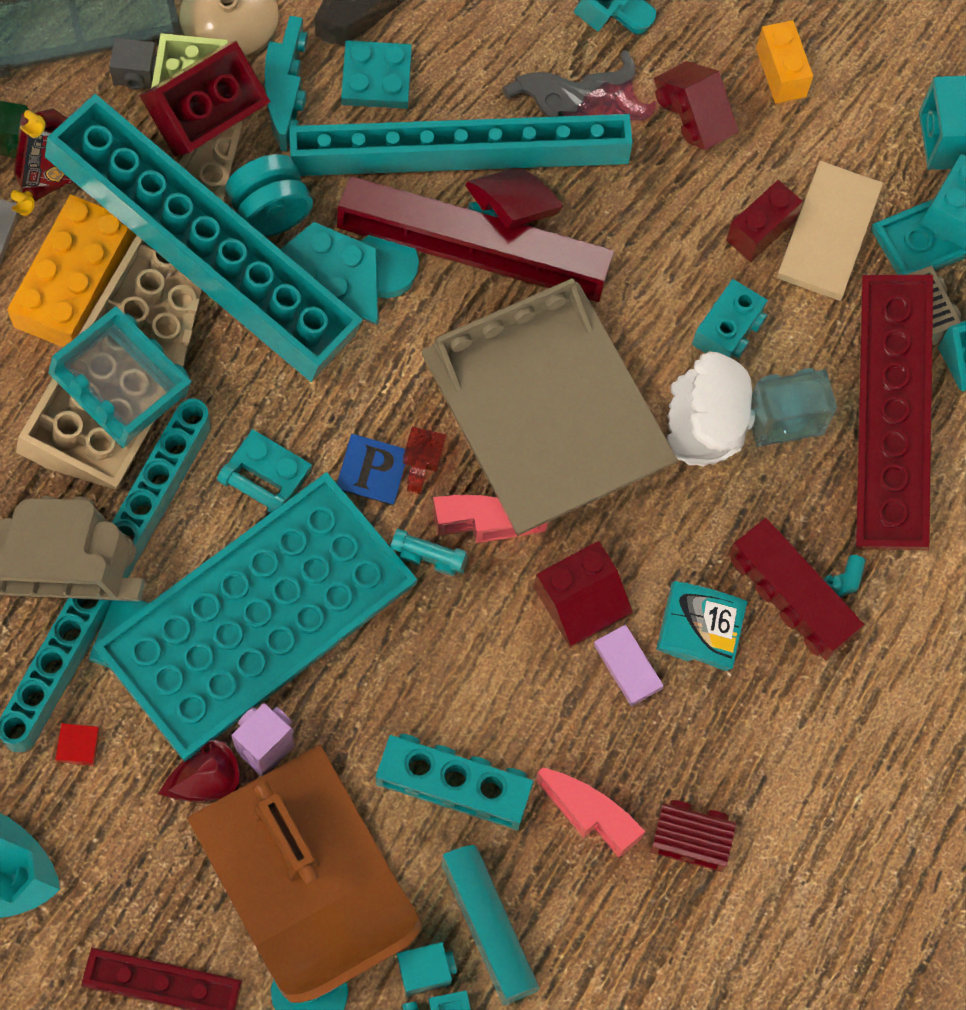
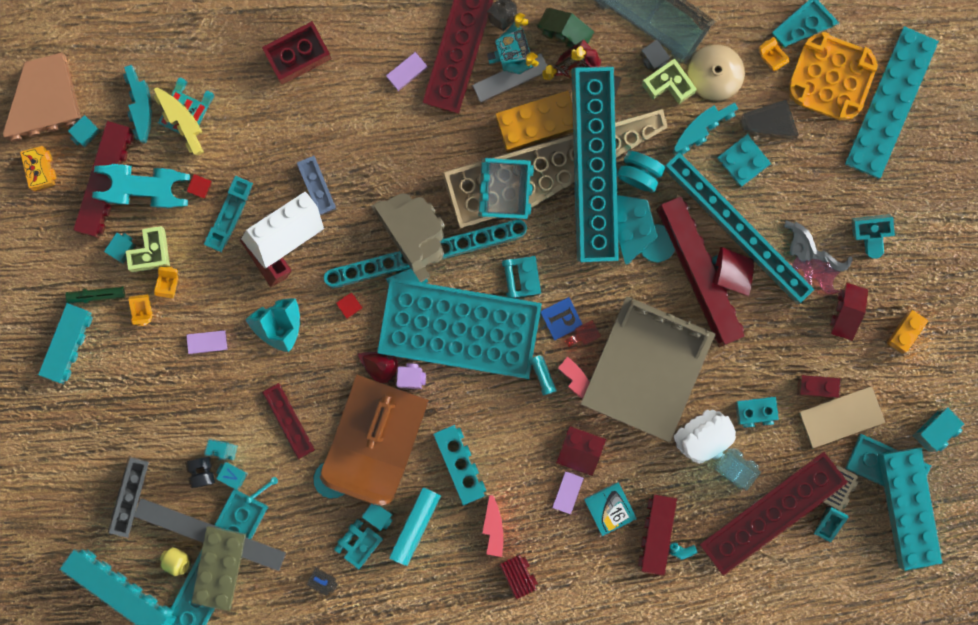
camera: 55 degrees right, 15 degrees up
(205, 99) = (657, 108): dark red brick -> none

